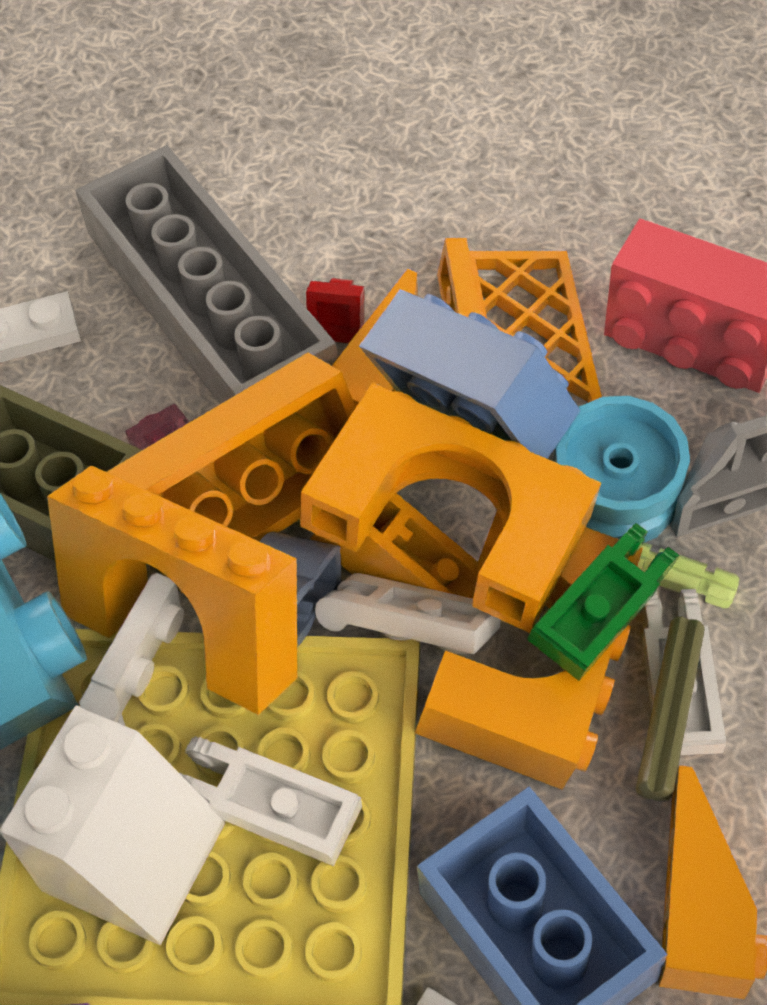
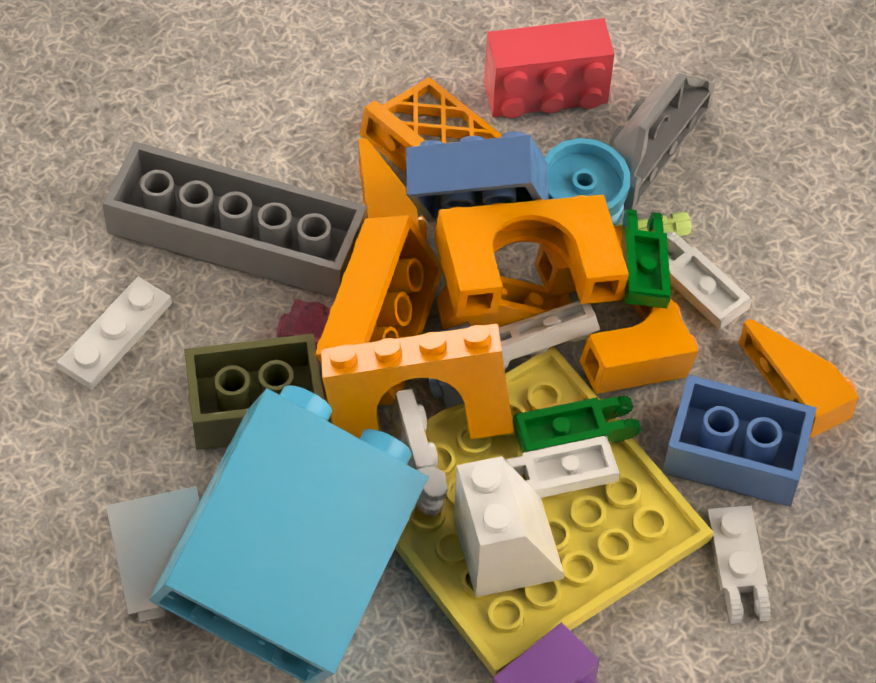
camera: 45 degrees left, 0 degrees up
(337, 307) = (330, 182): red tile -> none
(342, 755) = (575, 423): none -> green hinge
(670, 710) = (715, 297): olive axle -> none

